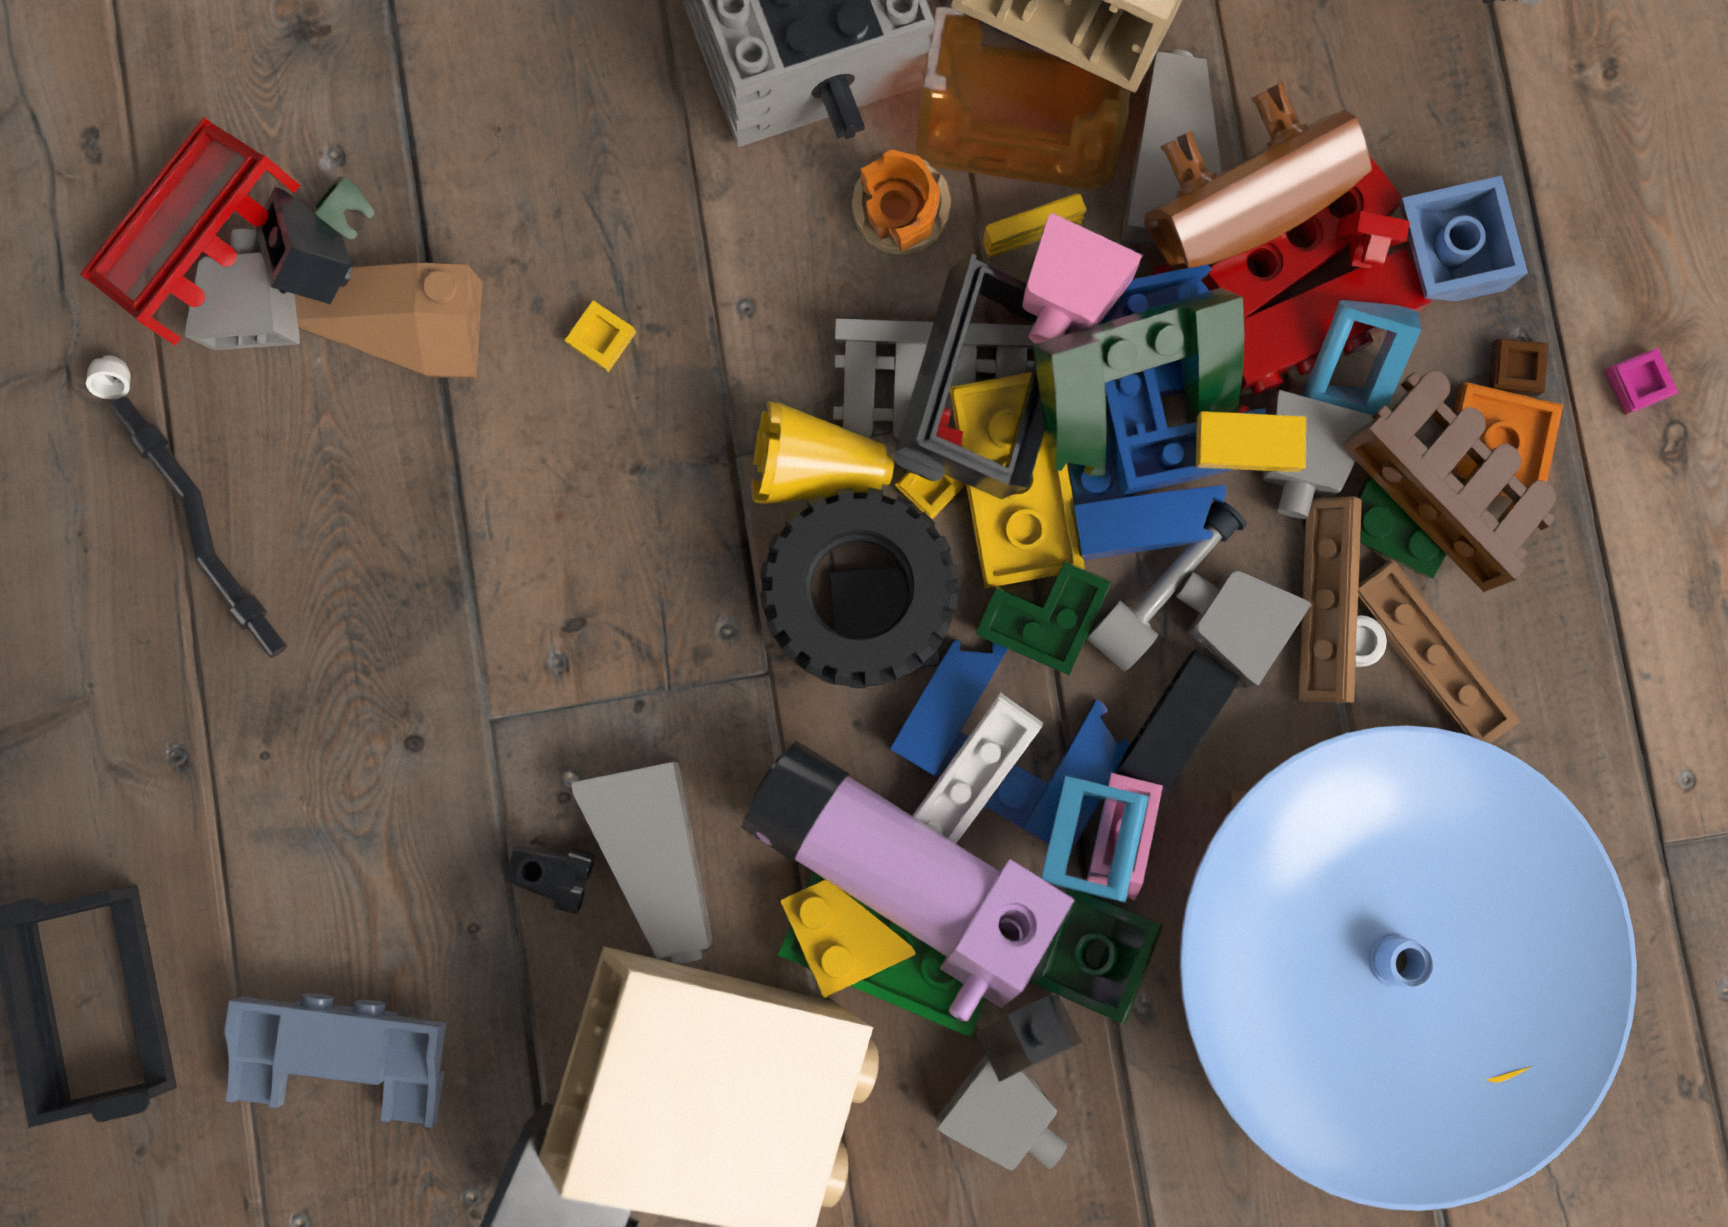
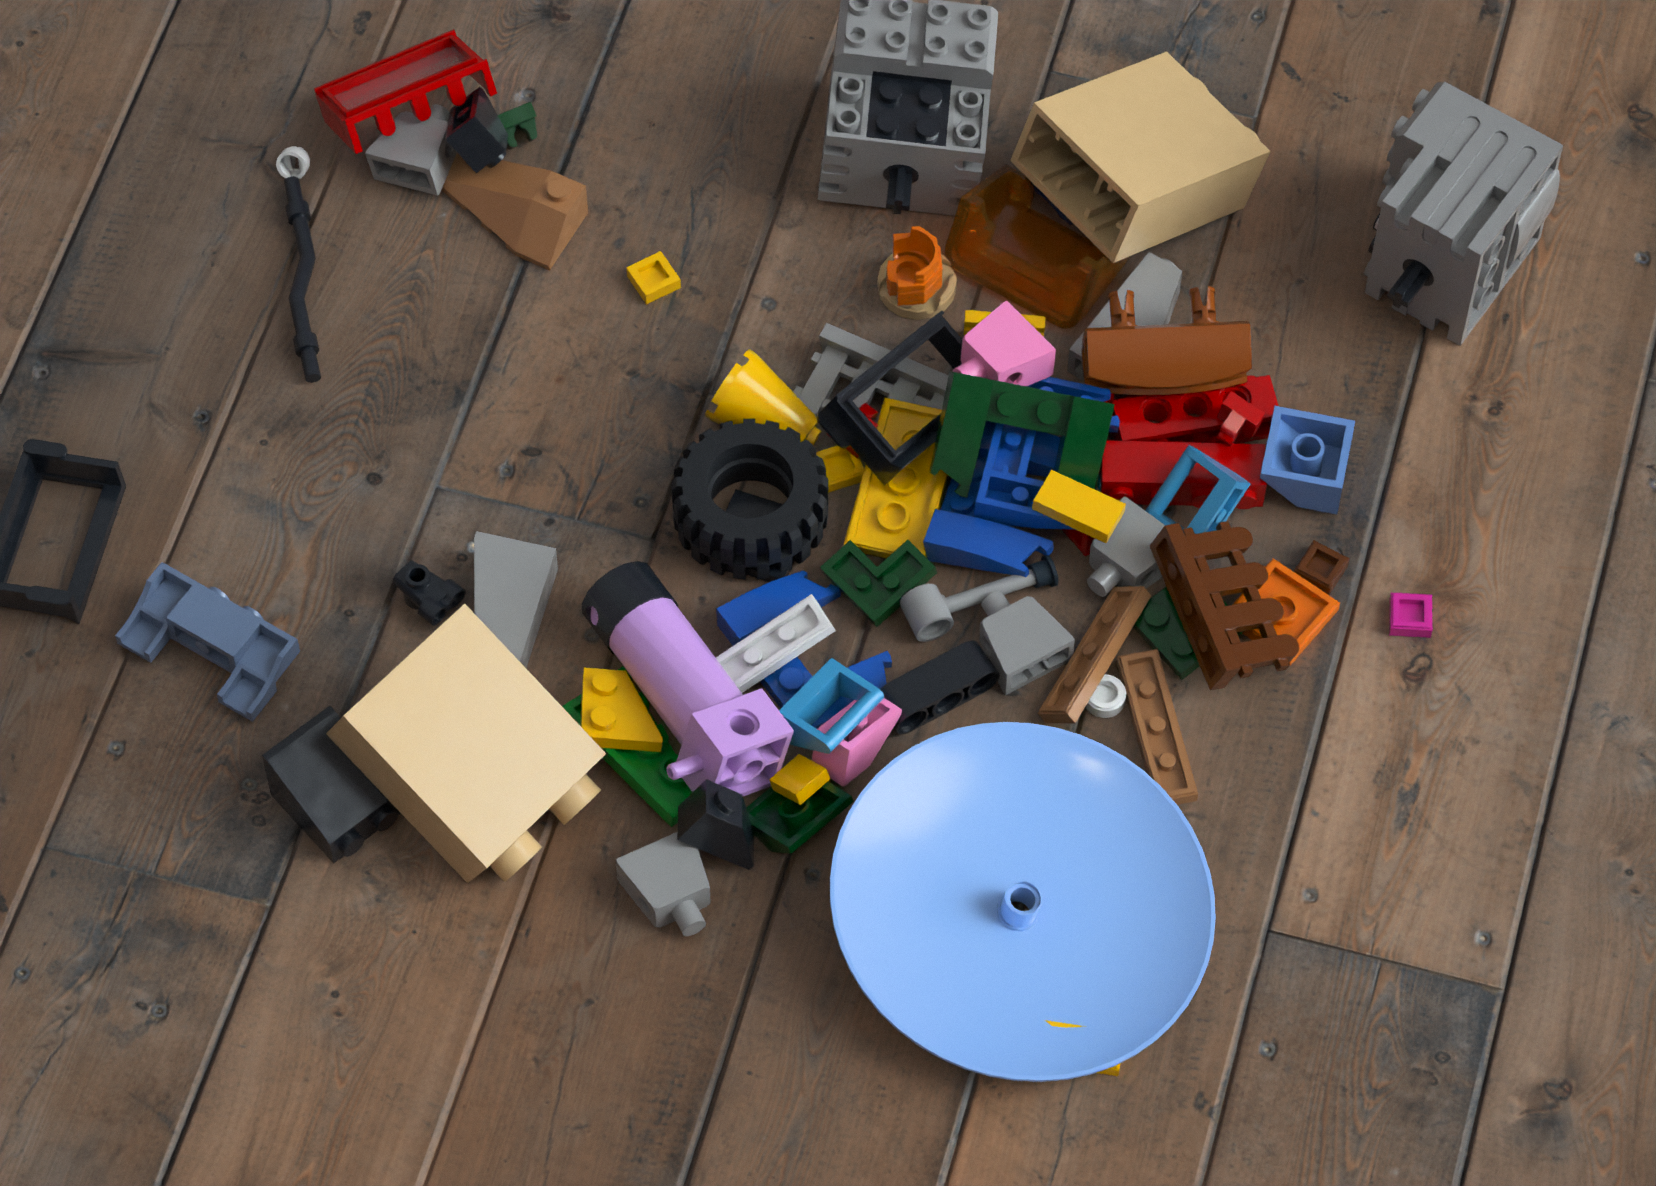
camera: 20 degrees right, 25 degrees down
(1088, 921) = (799, 779): none -> yellow tile

